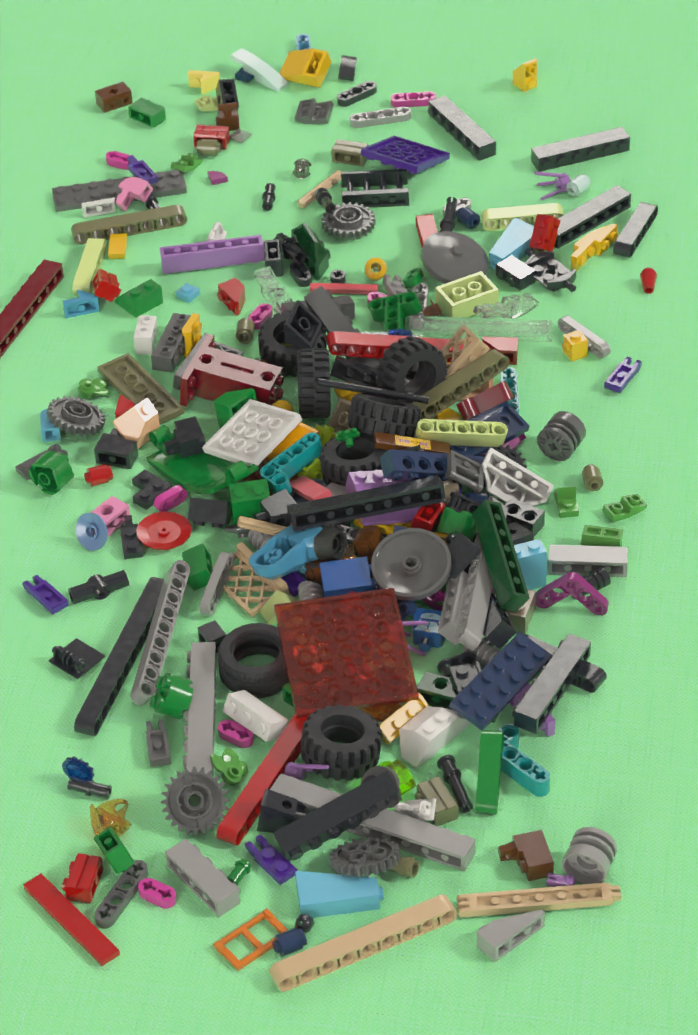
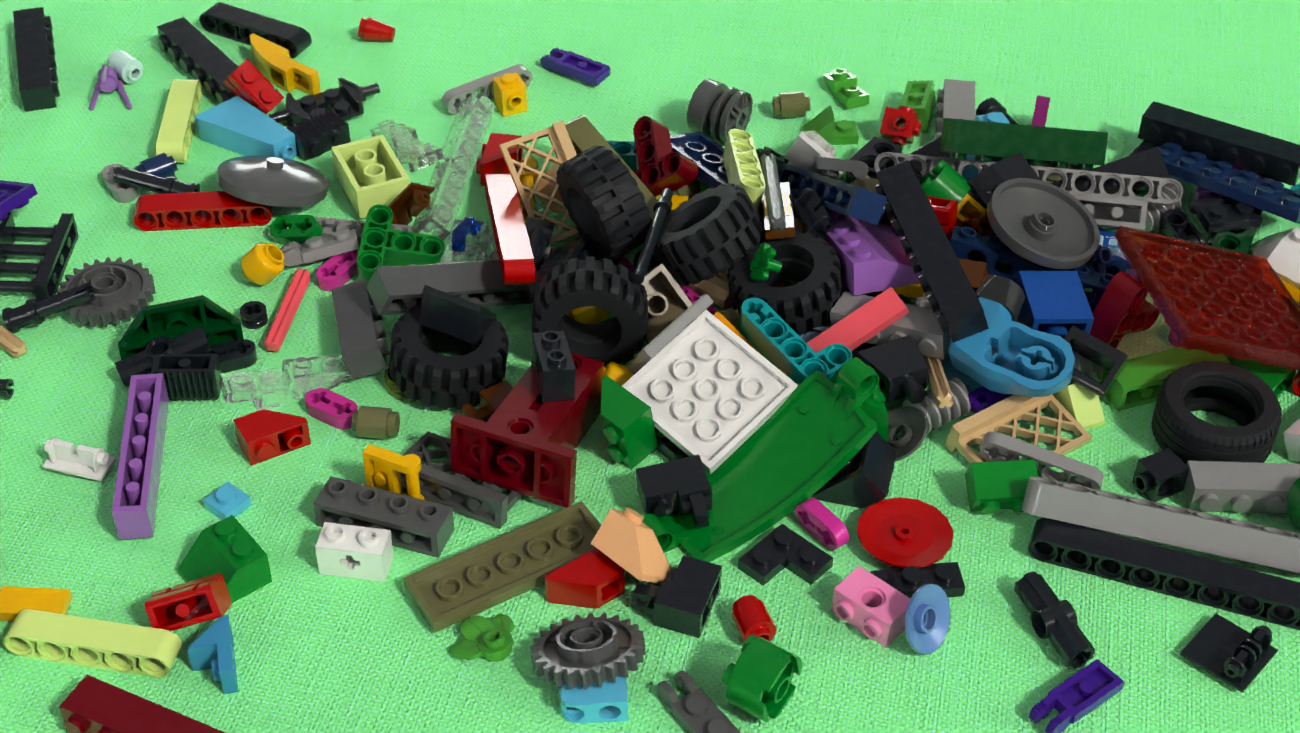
camera: 90 degrees left, 0 degrees up
(248, 361) = (553, 366): none -> black brick
(303, 590) = (1099, 353): none -> black tile
(307, 417) = (670, 333): none -> light grey tile
(425, 438) = (773, 192): none -> dark grey axle
(569, 528) = (892, 121): none -> red brick

